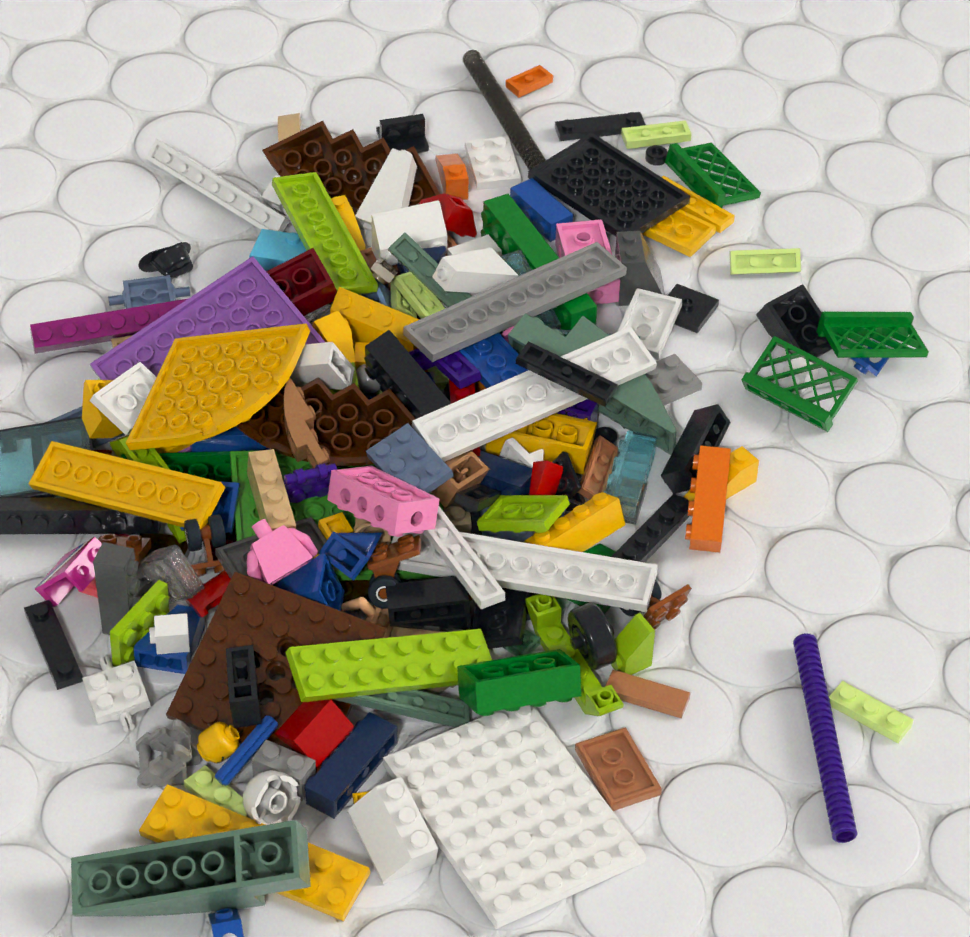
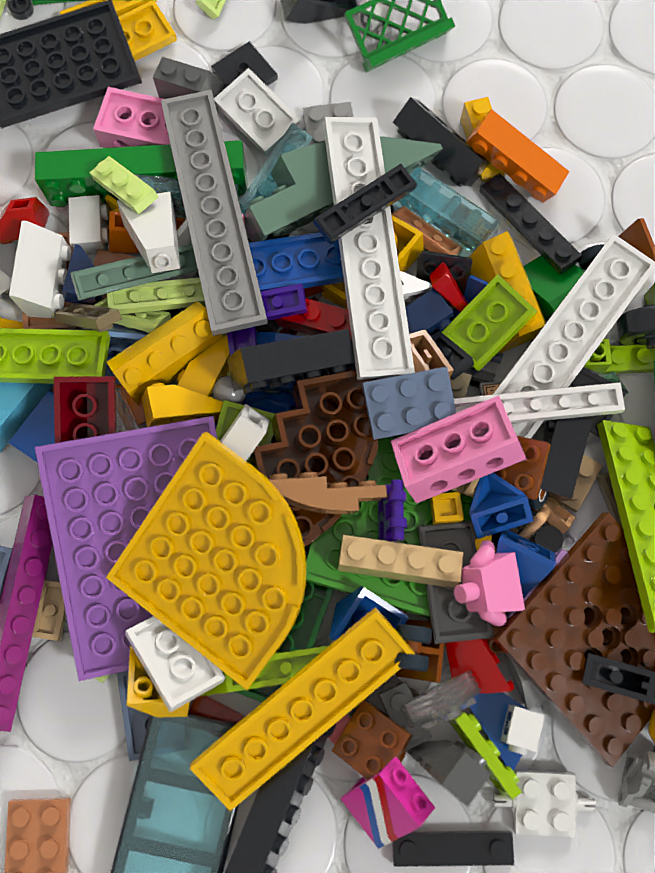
camera: 65 degrees left, 30 degrees up
(504, 243) = (124, 185): none -> yellowish green plate
(540, 207) = (46, 134): blue brick -> none

